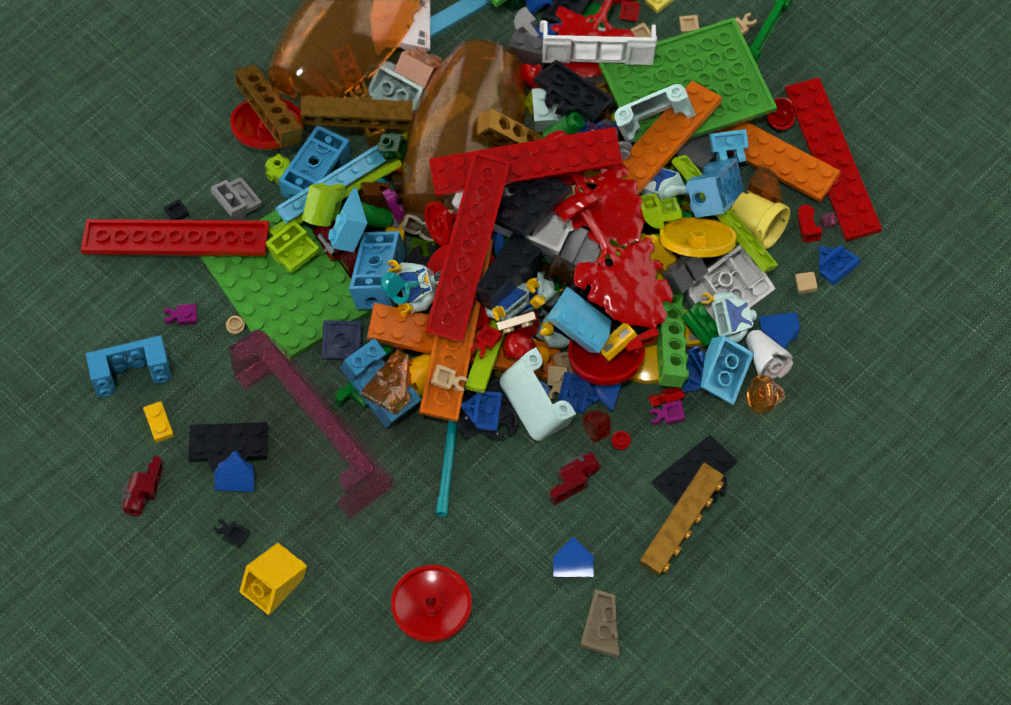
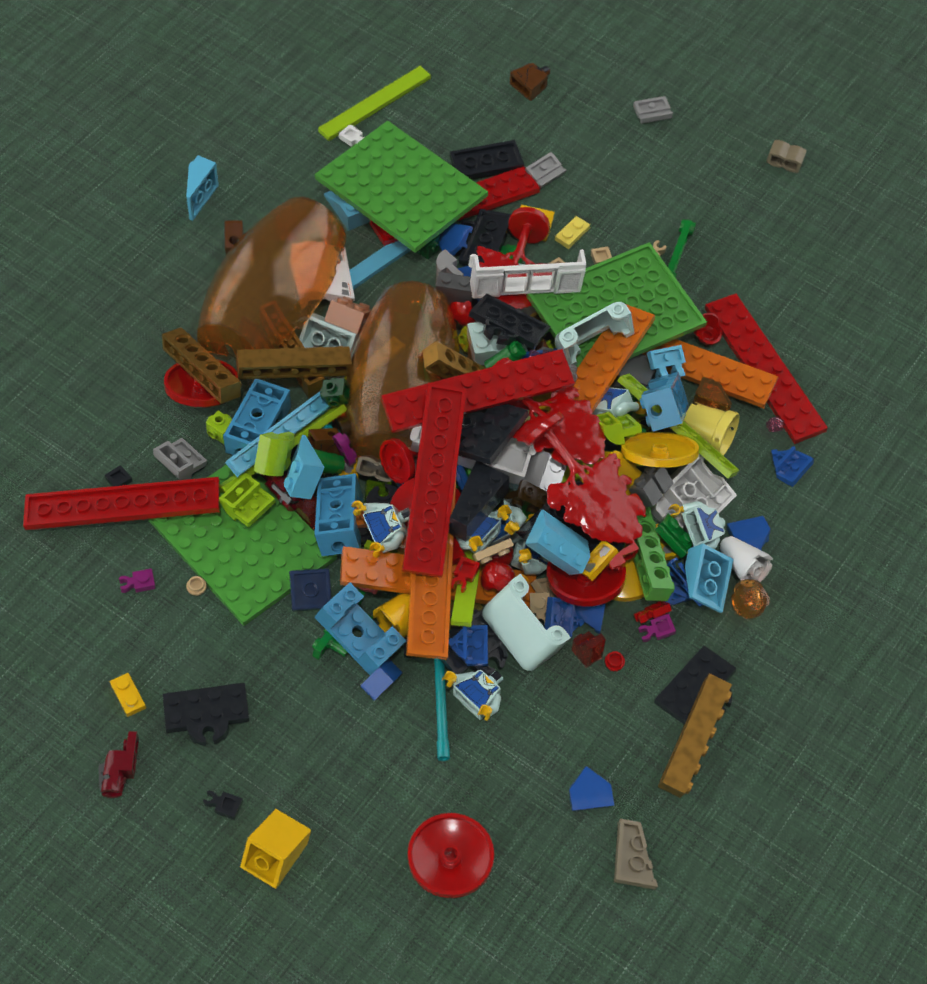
camera: 15 degrees left, 5 degrees down
(126, 356) = (85, 629): dark azure plate -> none
(235, 474) = (218, 741): blue slope -> none
(366, 477) = (233, 610): clear pink windscreen -> none
(390, 383) = (373, 628): clear orange plate -> none
(393, 283) = (360, 525): teal piece -> none
(395, 433) = (381, 679): none -> blue slope
(445, 378) = (430, 615): tan plate -> none
(482, 454) = (476, 691): none -> torso
(574, 476) = (575, 703): dark red plate -> none
(630, 10) = (543, 247): red tile -> none
(806, 225) = (755, 431): red leg -> none
(806, 282) = (765, 486): tan tile -> none

